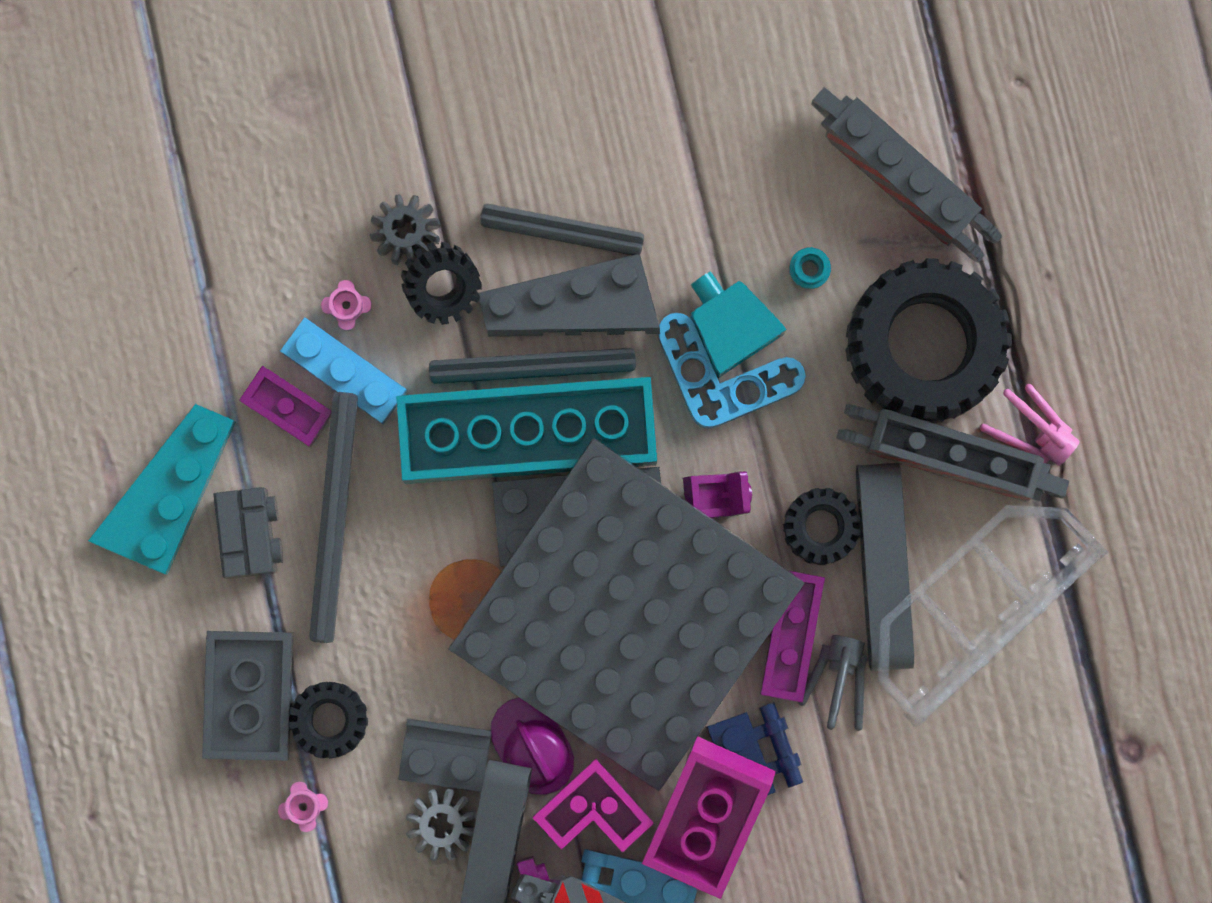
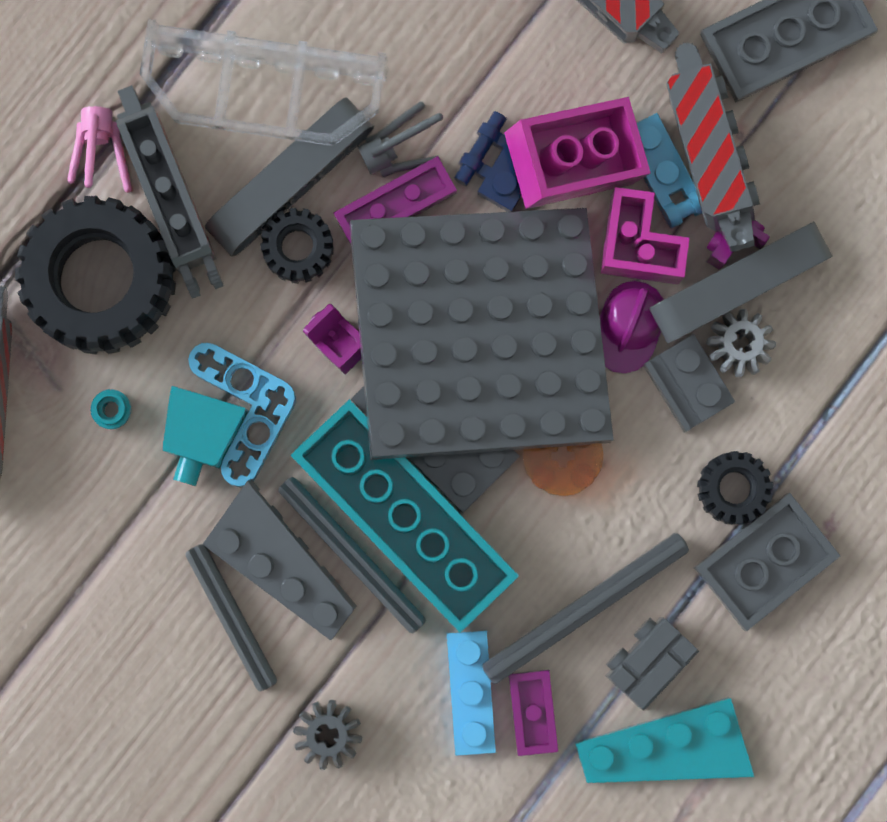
camera: 125 degrees left, 0 degrees up
(291, 810) = (819, 446): bright pink plate -> none
(358, 304) = (411, 724): bright pink plate -> none
(451, 303) = (348, 652): black tyre -> none

